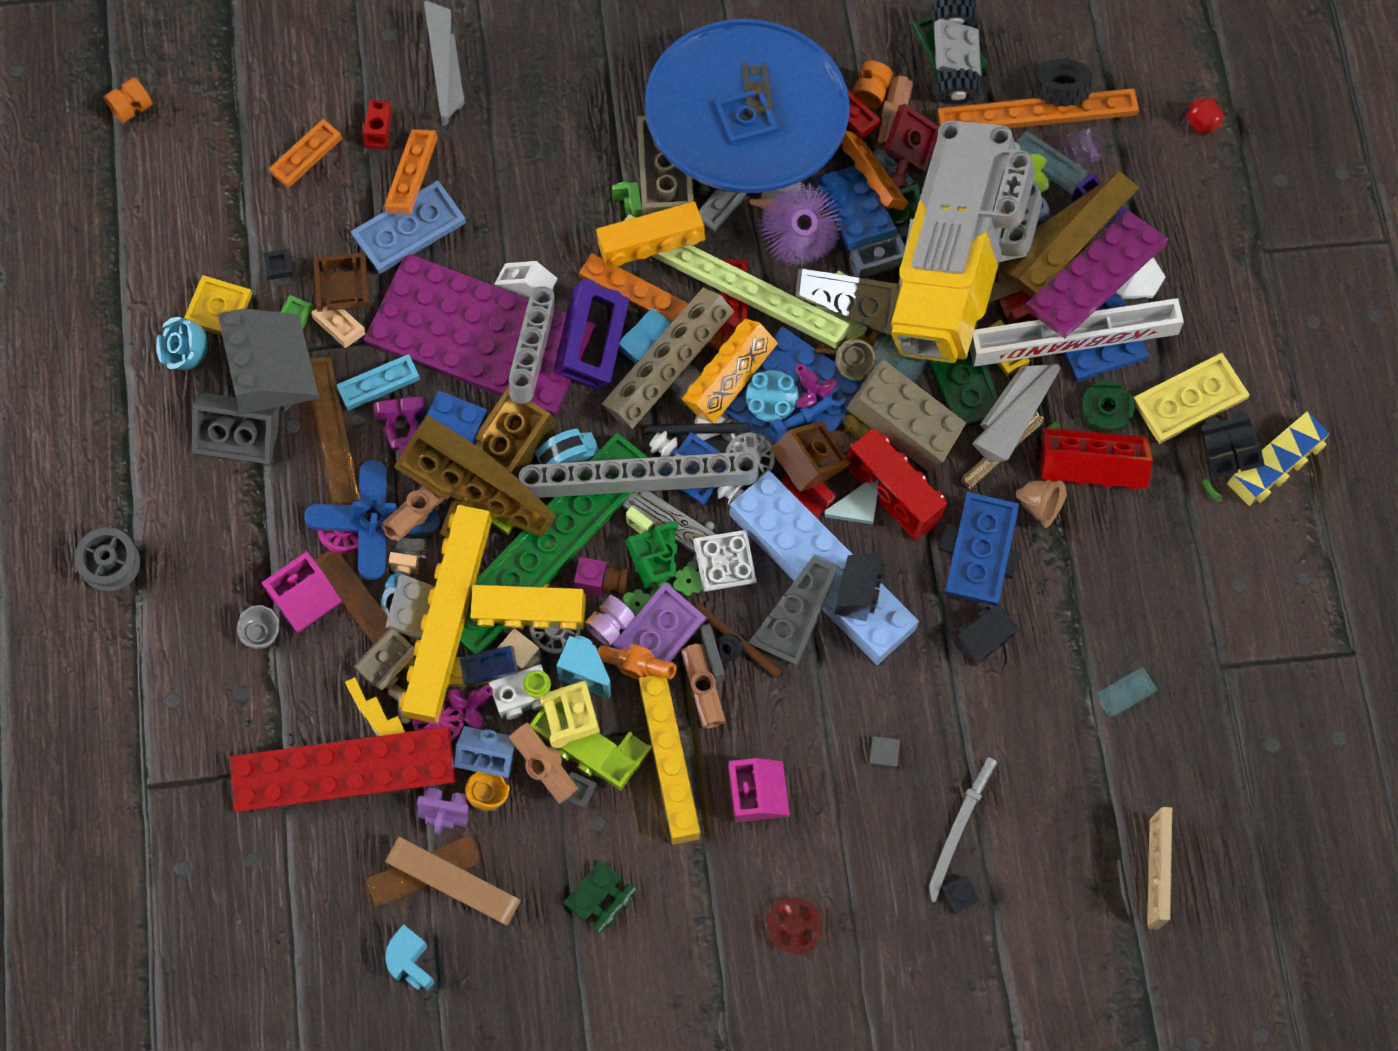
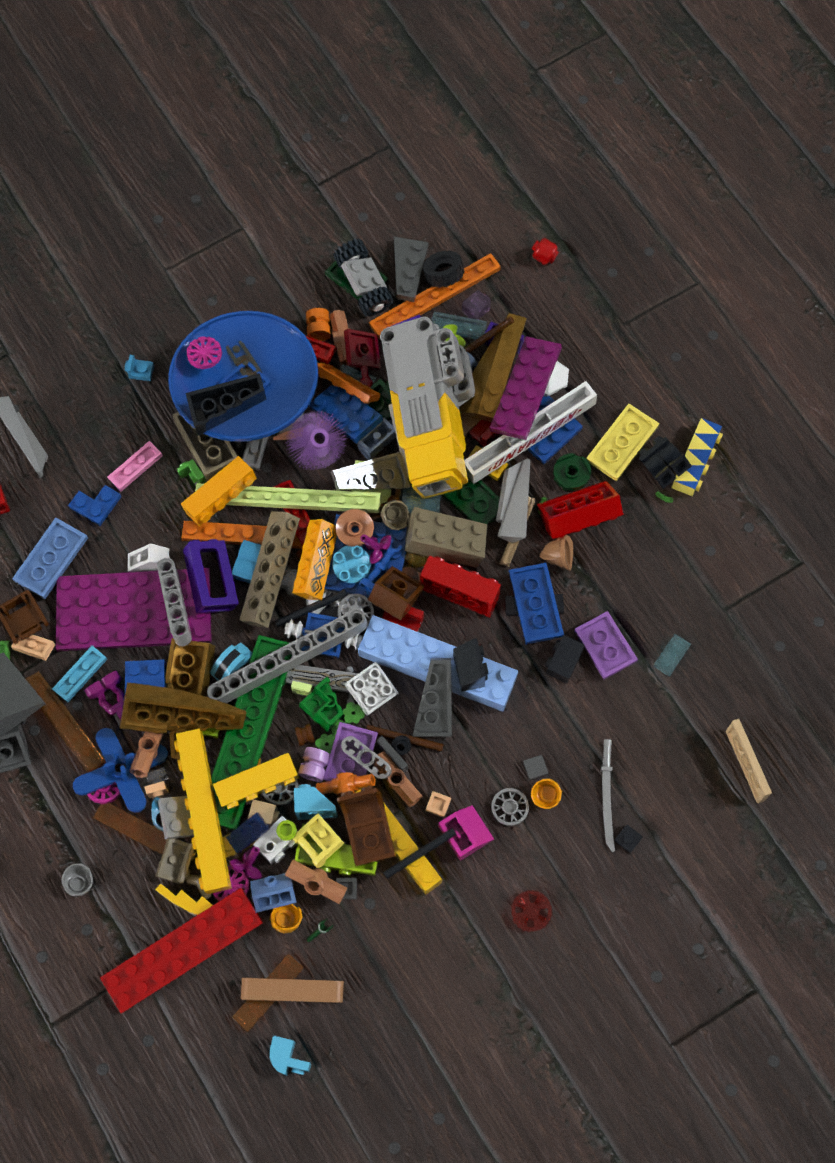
camera: 20 degrees left, 0 degrees up
(301, 592) = (96, 842): dark pink slope -> none
(411, 172) = (34, 520): orange plate -> none
(442, 812) = (262, 947): medium lavender hips -> none
(492, 192) = (98, 508): none -> blue plate
(523, 825) = (321, 929): none -> dark green hand
(563, 160) = (134, 466): none -> bright pink plate
(590, 576) = (287, 740): magenta brick -> none
(593, 891) = (388, 953): dark green plate -> none
(624, 45) = (139, 369): none -> dark azure bracket
(638, 722) = (367, 825): none -> reddish brown bracket
(661, 627) = (358, 744): none -> light grey beam
(687, 787) = (419, 853): none -> black bar
(704, 124) = (224, 401): none -> black wedge
(711, 56) = (204, 352): none -> dark pink wheel
(740, 741) = (438, 804): none -> light nougat plate
(796, 340) = (350, 519): none -> nougat dish
(828, 785) = (510, 807): none -> light grey wheel
(856, 506) = (440, 612): light aqua tile -> none
(881, 789) = (546, 793): none -> light orange hair
(1023, 56) = (408, 266): none -> dark grey wing
(1046, 641) = (605, 645): none -> medium lavender plate
(1081, 188) = (491, 333): none -> reddish brown bar

